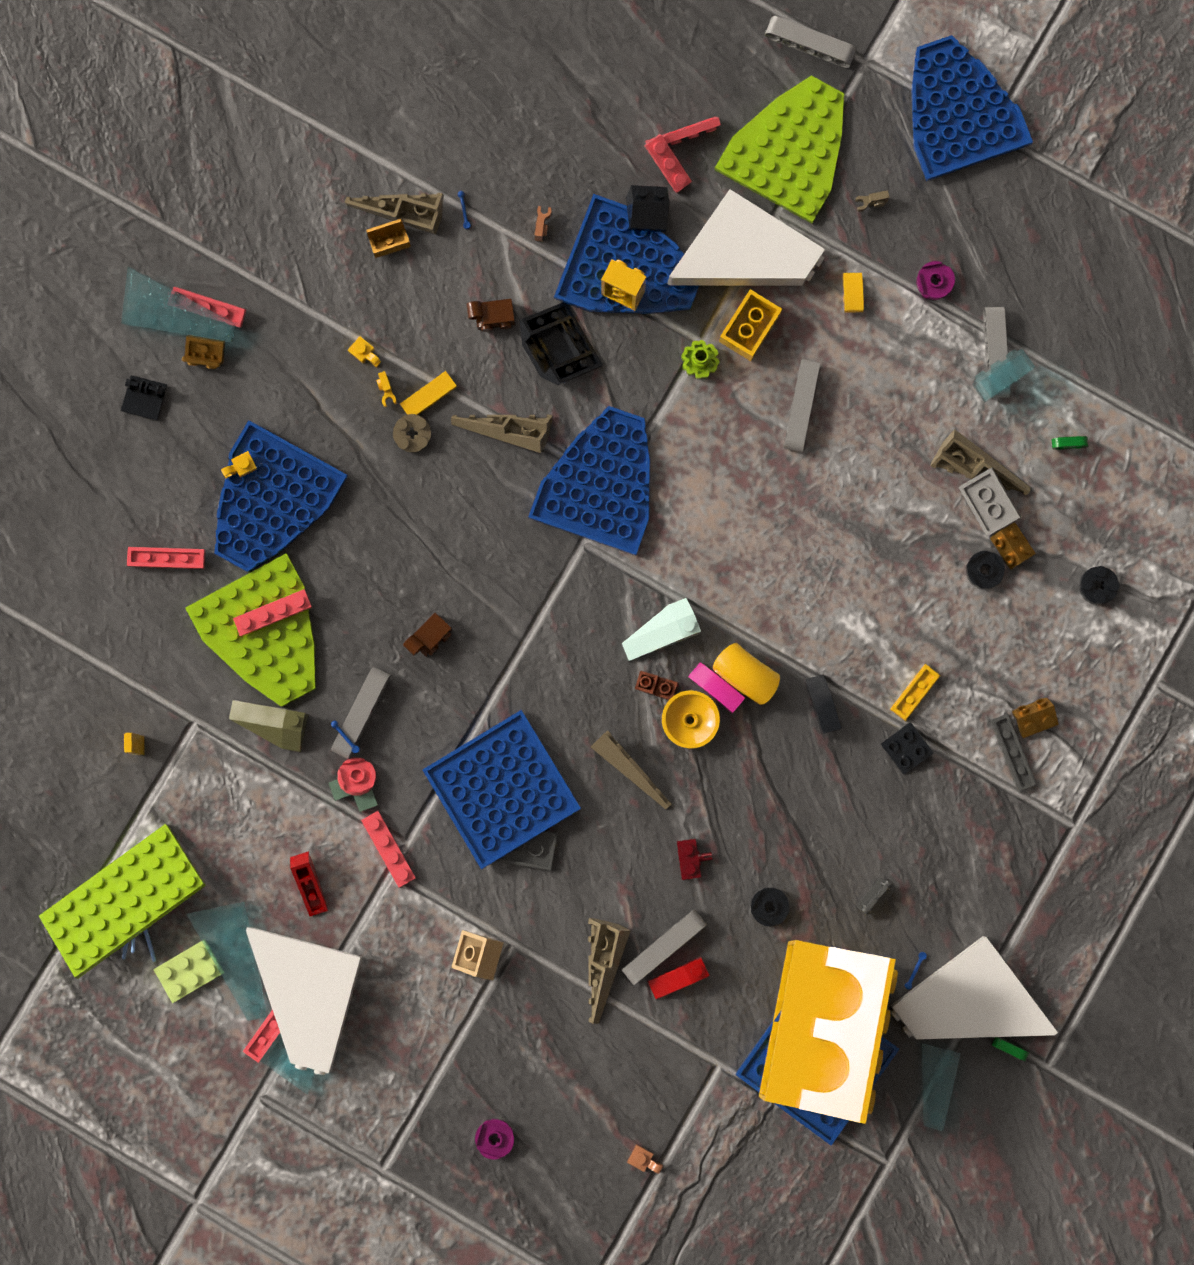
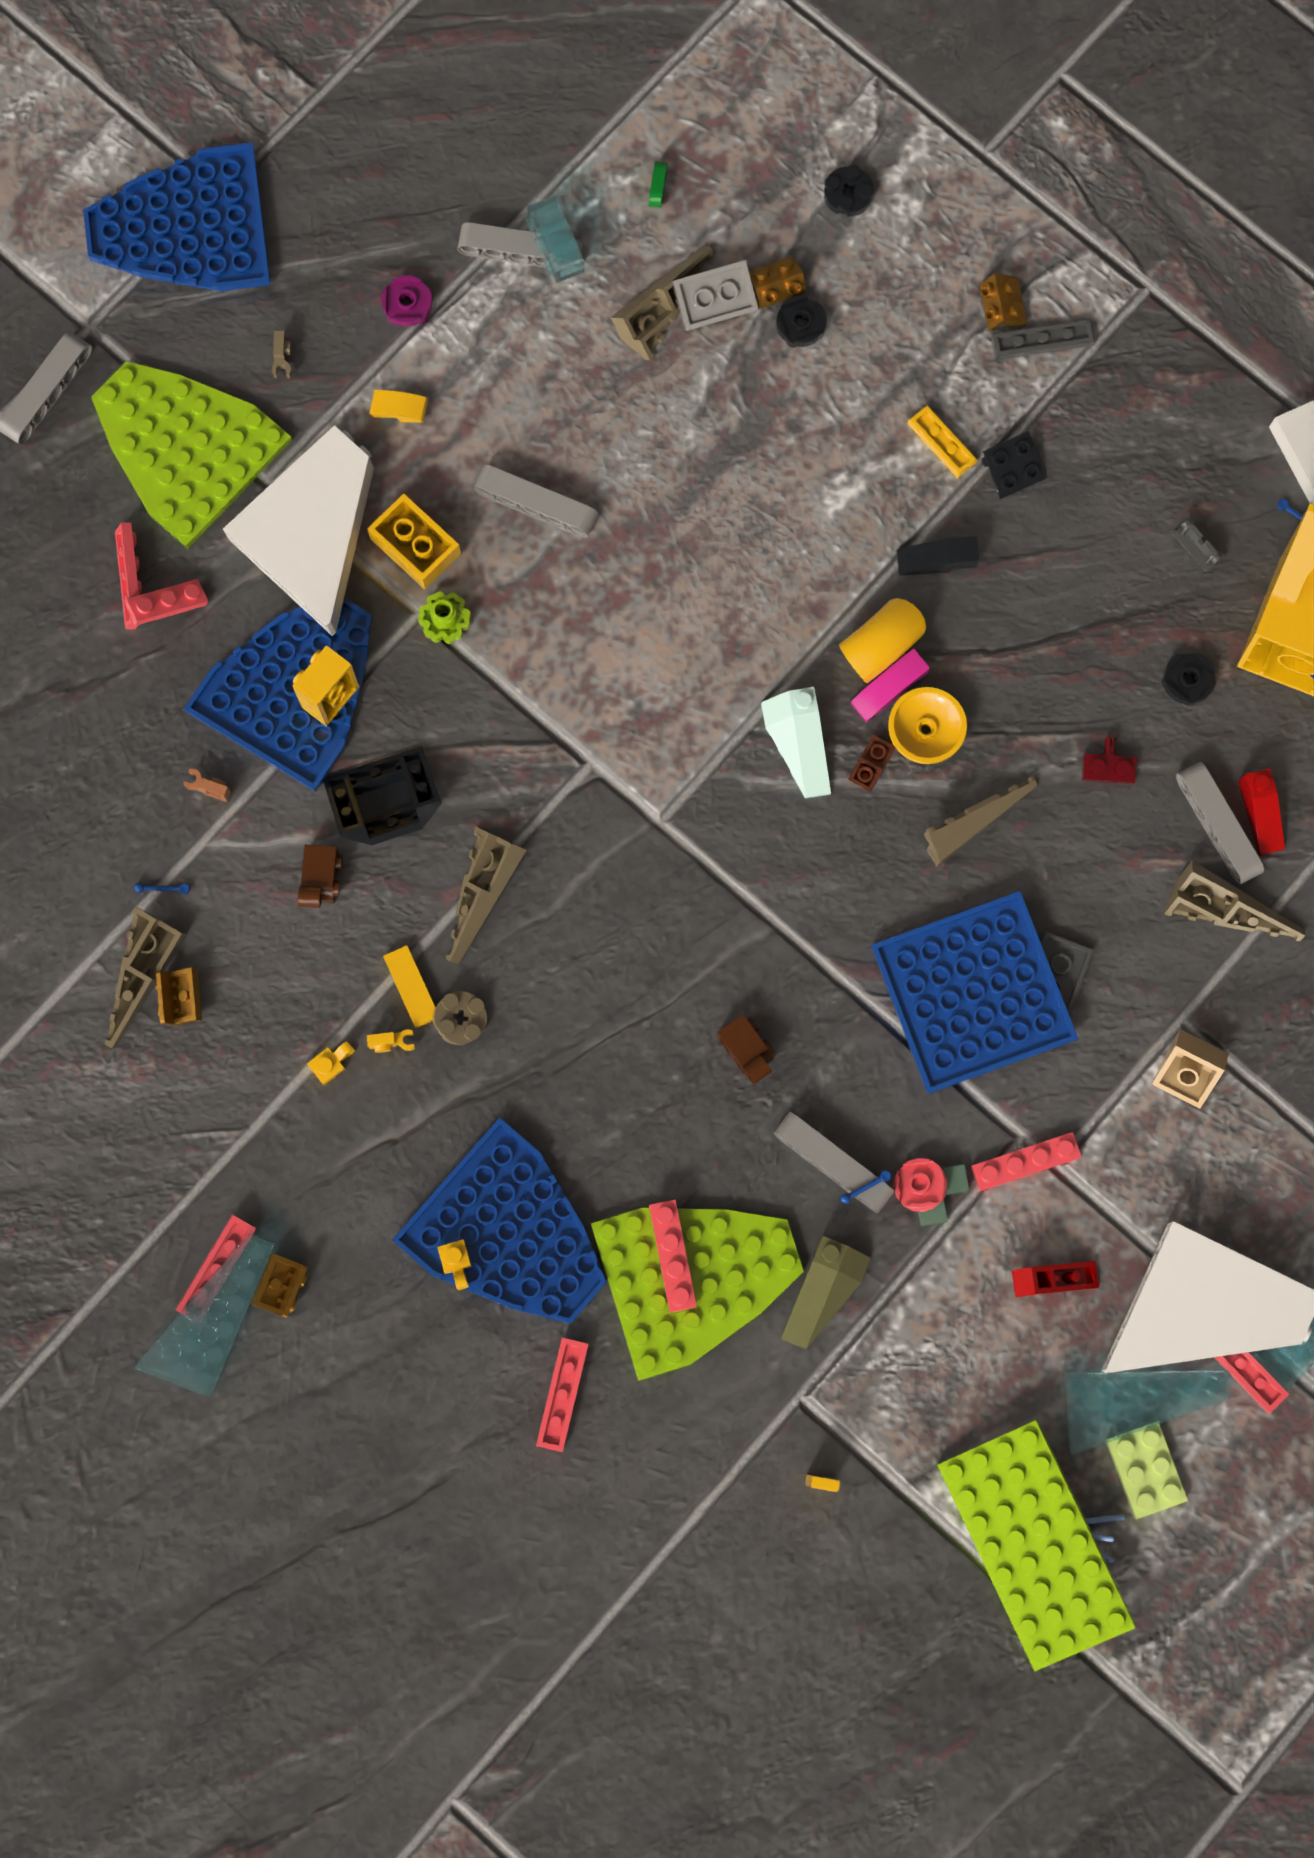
camera: 85 degrees left, 5 degrees down
(143, 397) = (325, 1385): black hinge -> none
(600, 483) = (584, 780): blue wing -> none
(647, 208) = (222, 639): black slope -> none

